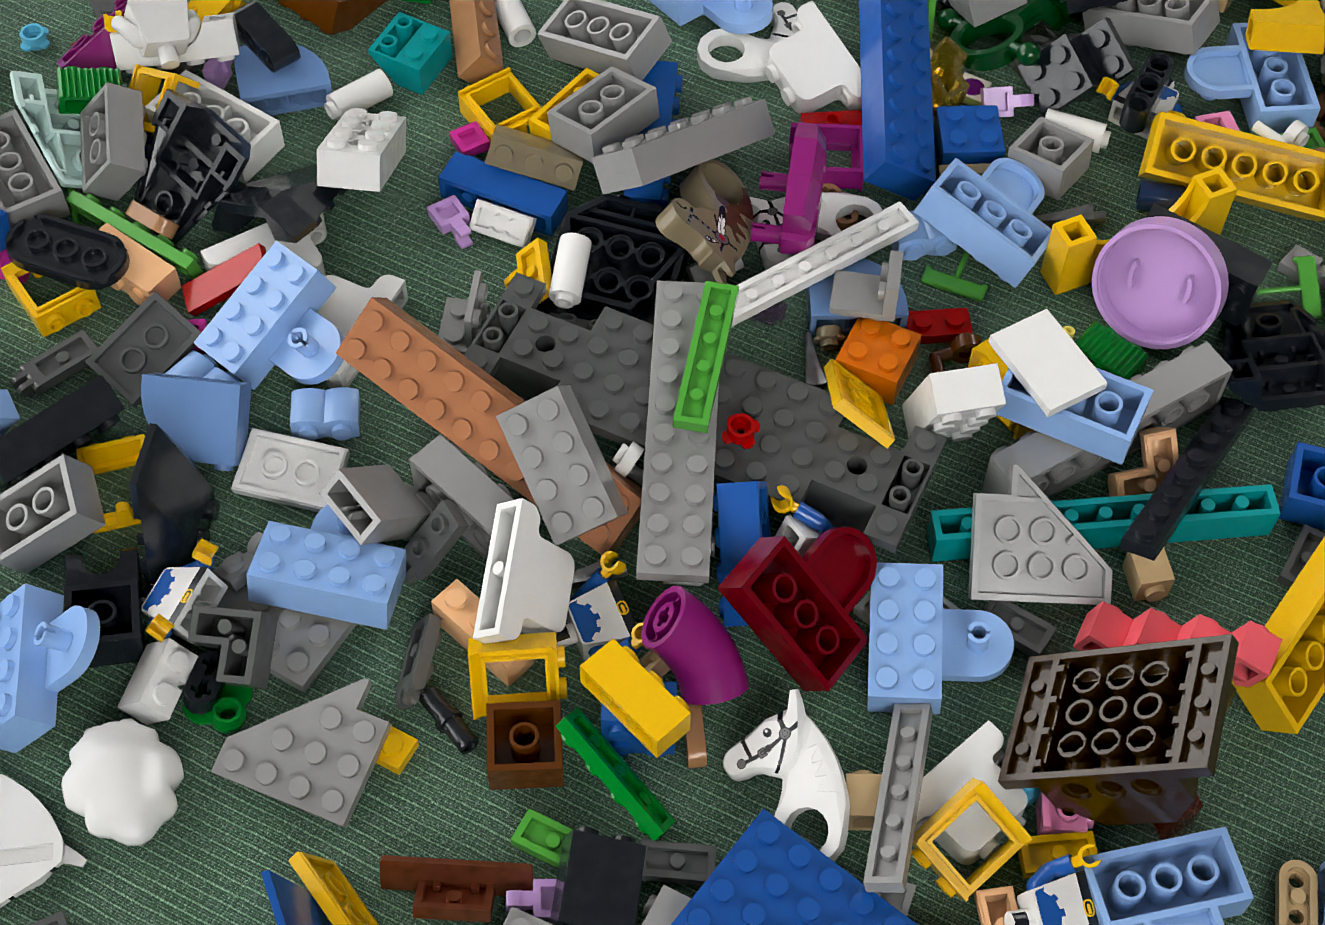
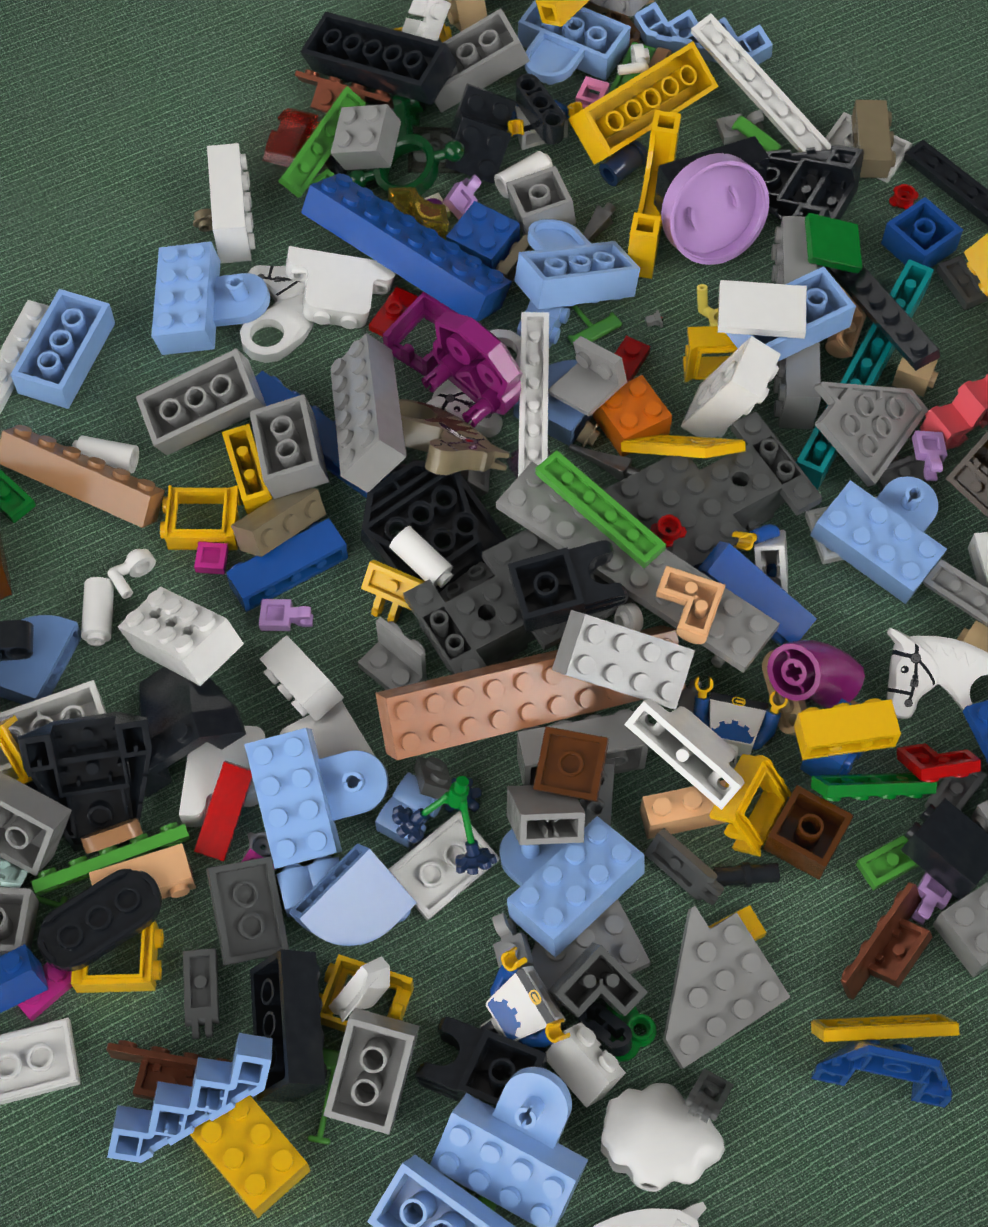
camera: 55 degrees left, 5 degrees up
(116, 466) = (363, 988): none -> white slope
(171, 503) = (437, 959): black wedge -> none
(182, 797) = (708, 1095): none -> dark grey hinge
(297, 411) = (459, 797): none -> dark blue plant
(362, 409) = (432, 776): none -> dark grey plate
(388, 259) = (300, 679): none -> white brick
(412, 52) = (85, 544): teal slope -> none
(422, 94) = (136, 564): none -> white plate
(429, 488) = (571, 764): none -> reddish brown plate
(502, 223) = (316, 582): white plate -> none
(600, 370) = (570, 585): none -> black brick
(669, 485) = (698, 596): none -> light nougat brick
(681, 815) = (931, 766): none -> red plate
(805, 601) = (821, 584): dark red brick -> none
(958, 350) = (660, 358): reddish brown plate -> none
(1007, 320) = (654, 319): none -> light grey piece
(1055, 626) = (930, 448): none -> lavender plate
(1111, 352) = (737, 270): green brick -> none
(1214, 400) = (833, 243): none -> green tile

